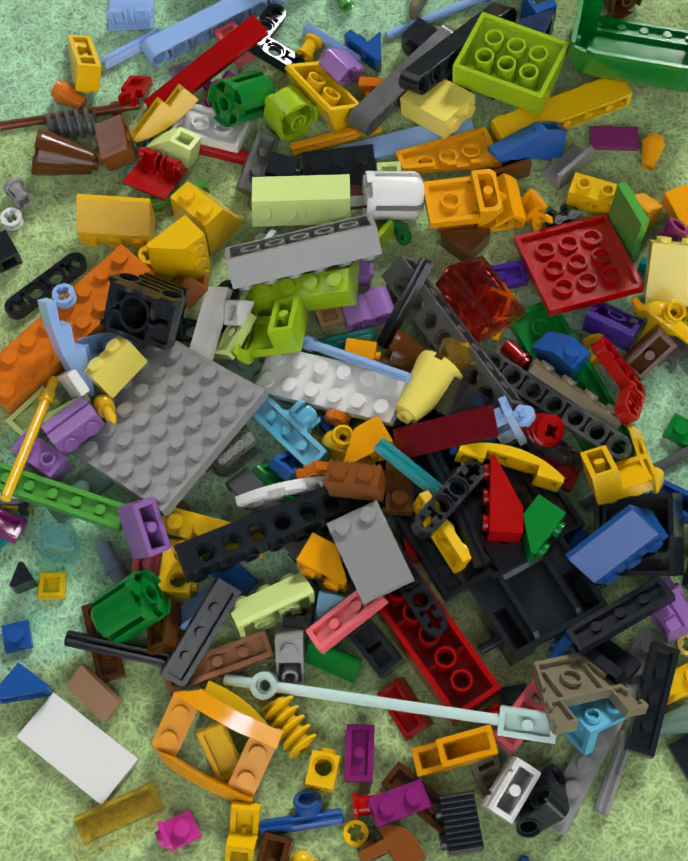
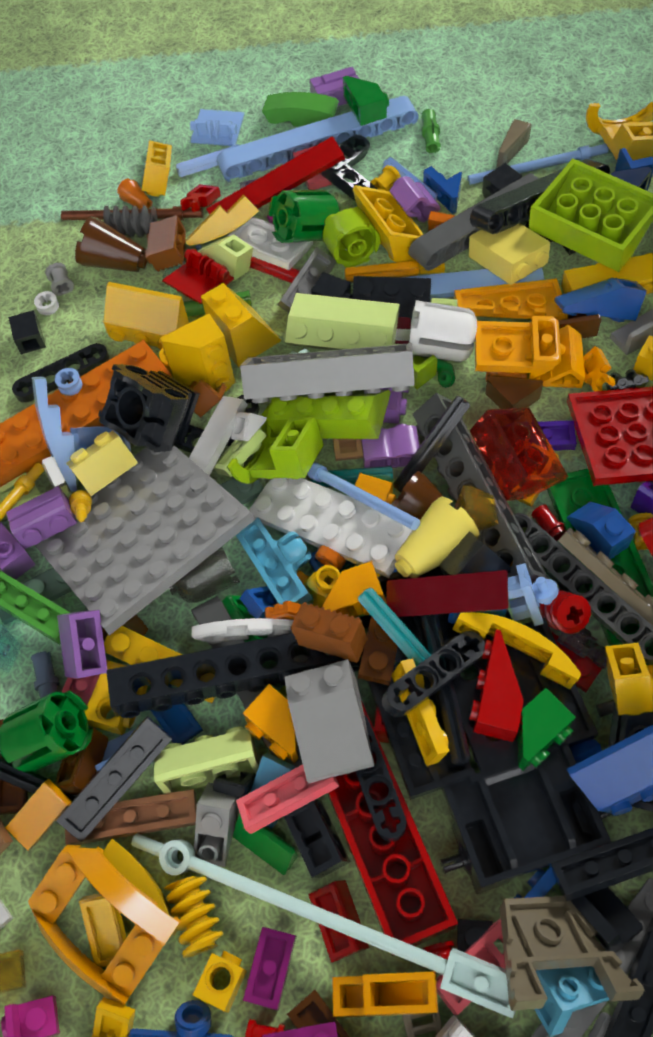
camera: 15 degrees right, 5 degrees down
(140, 674) = (38, 814): none -> light orange tile

